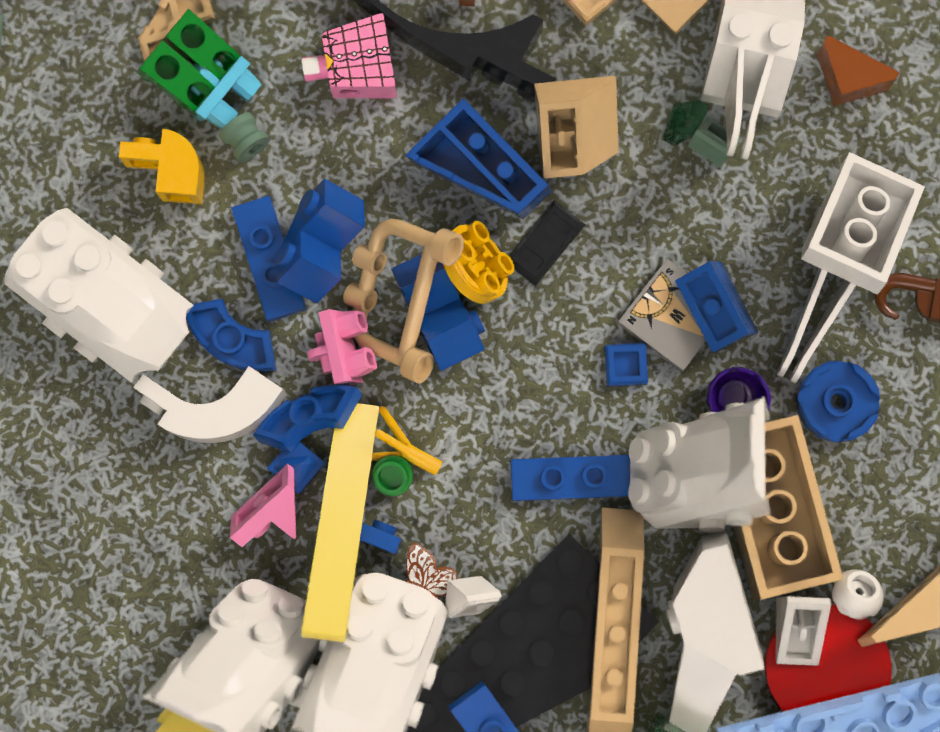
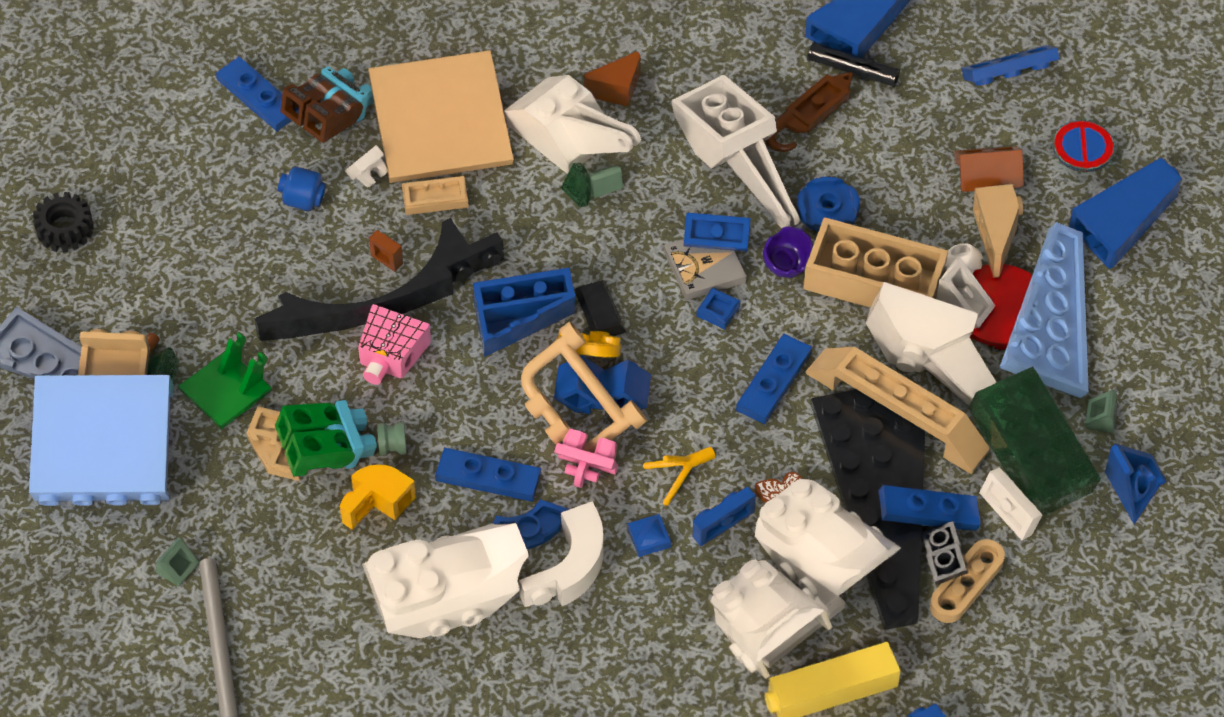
camera: 60 degrees left, 25 degrees down
(270, 504) = (667, 551): bright pink slope -> none
(313, 245) = (495, 425): blue brick -> none
(322, 408) = (618, 504): blue tile -> none
(340, 527) = (711, 509): light yellow tile -> none
(392, 475) = (697, 479): green plate -> none
(470, 596) = (817, 470): white slope -> none
(576, 125) = (534, 239): tan slope -> none
(702, 470) = (826, 279): white slope -> none

